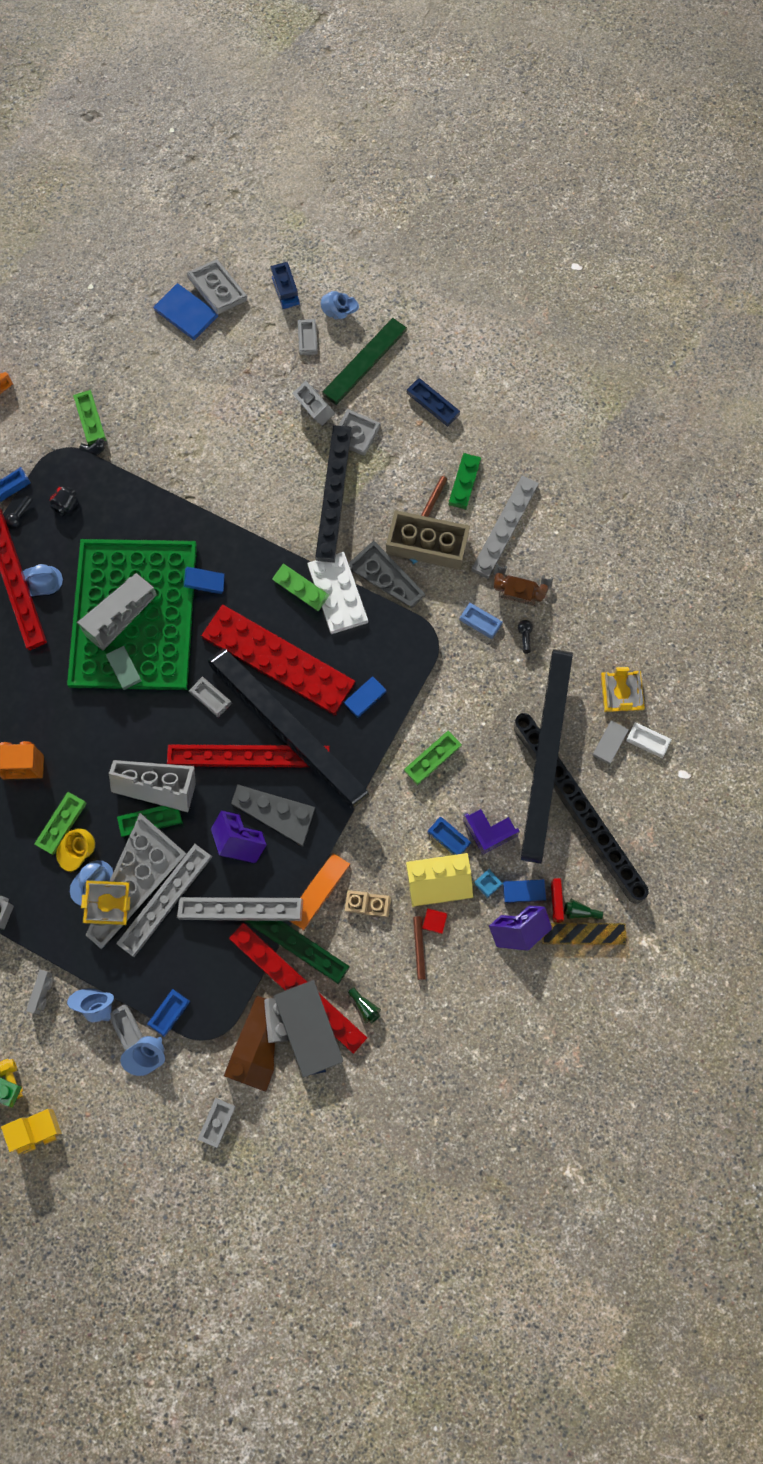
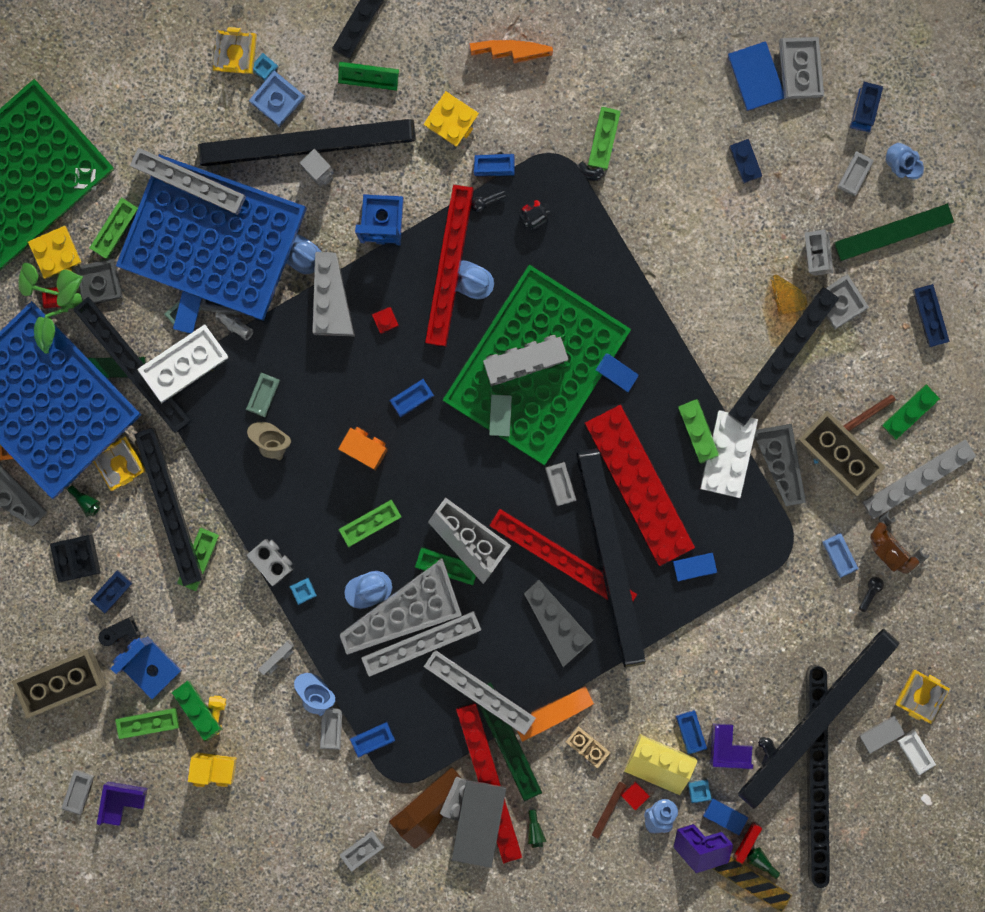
camera: 30 degrees right, 15 degrees up
(32, 918) = (303, 591): none -> dark azure tile
(40, 700) = (411, 398): none -> blue tile
(74, 849) = (370, 554): yellow cap -> none
(106, 902) = (372, 621): piece -> none
(143, 1056) = (334, 763): medium blue piece -> none
(215, 374) = (745, 161): none -> dark blue plate
(235, 840) = (508, 627): dark purple panel -> none
(309, 450) = (787, 296): none -> clear yellow slope
(432, 757) = (720, 655): bright green plate -> none
(467, 924) = (661, 816): none -> medium blue head
(521, 808) = (768, 747): none -> black arm

